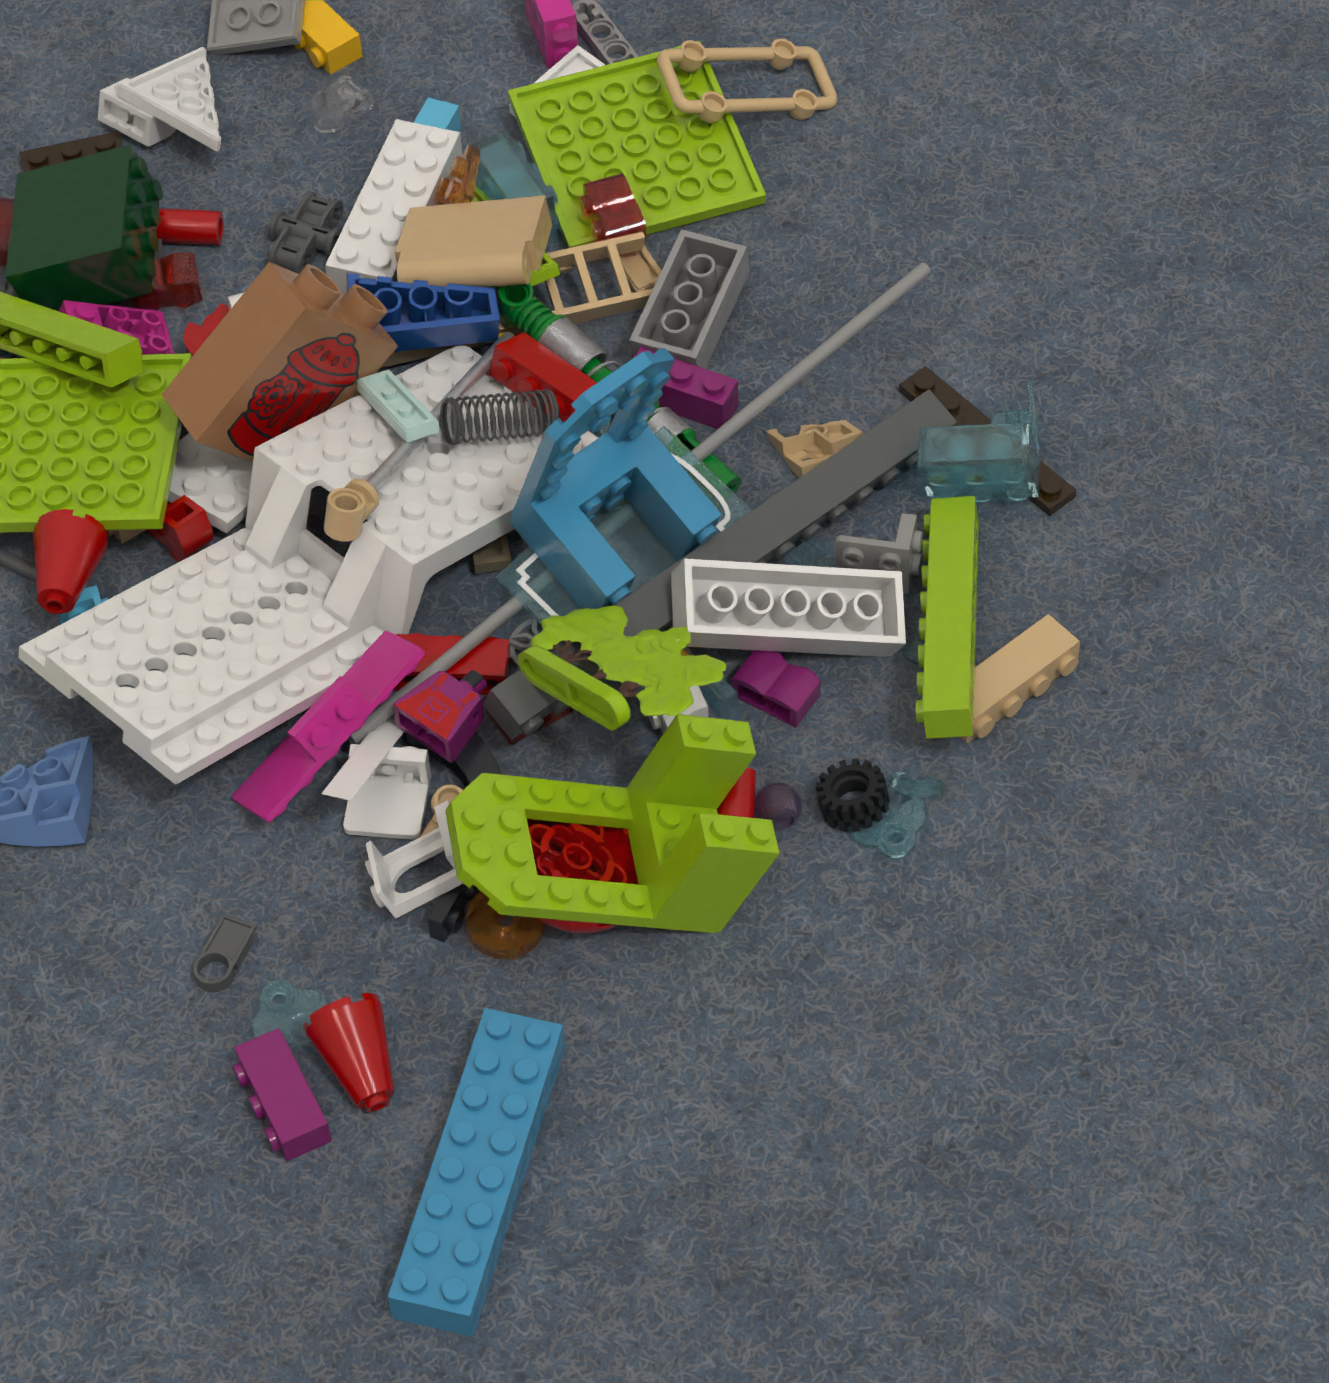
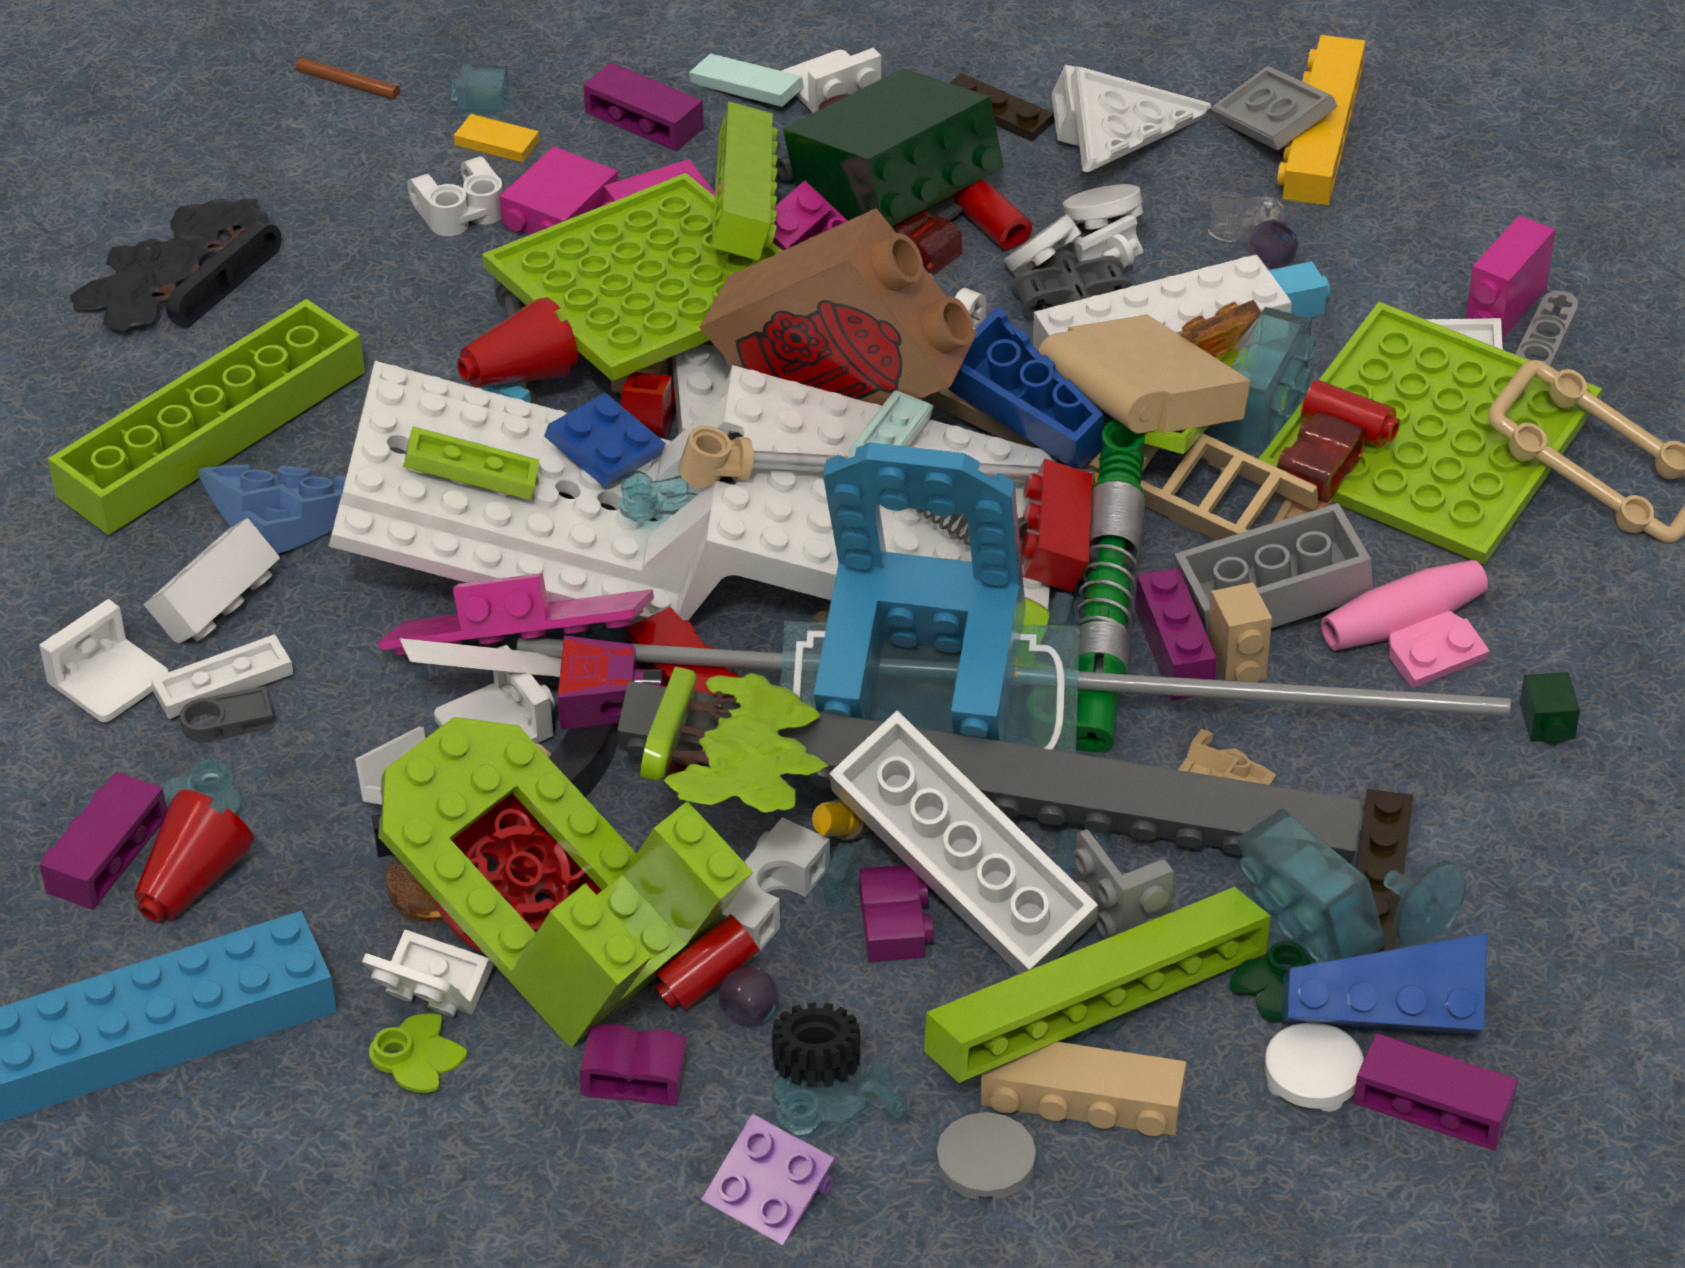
camera: 50 degrees right, 10 degrees down
(89, 885) = (213, 583): none -> white brick
(103, 1003) = (98, 665): none -> white bracket
(183, 935) = (223, 674): none -> white plate
(189, 651) = (471, 463): none -> lime plate
(219, 567) = (604, 440): none -> blue plate
(246, 165) = (1099, 204): none -> white tile
(254, 221) = (1042, 245): none -> white tile
(286, 188) = (1115, 240): none -> white hips
(300, 574) = (647, 498): none -> clear light blue plate
(380, 106) = (1273, 243): none -> clear purple piece
(578, 172) = (1374, 416): none -> red brick
(594, 966) = (432, 971): none -> white bracket
(654, 1017) = (420, 1053): none -> lime plate
(728, 350) = (1240, 633): none -> tan brick
(779, 265) = (1416, 620): none -> bright pink plate
(779, 903) = (633, 1064): none -> magenta brick
(920, 246) = (1549, 707): none -> dark green brick
(937, 889) = (769, 1179): none -> hinge
(1012, 534) = (1265, 977): none -> dark green plate
(1013, 765) = (986, 1156): none -> light grey tile
(1091, 469) = (1402, 989): none -> blue wedge
(1092, 557) = (1313, 1065): none -> white tile
(1167, 512) = (1435, 1091): none -> magenta brick

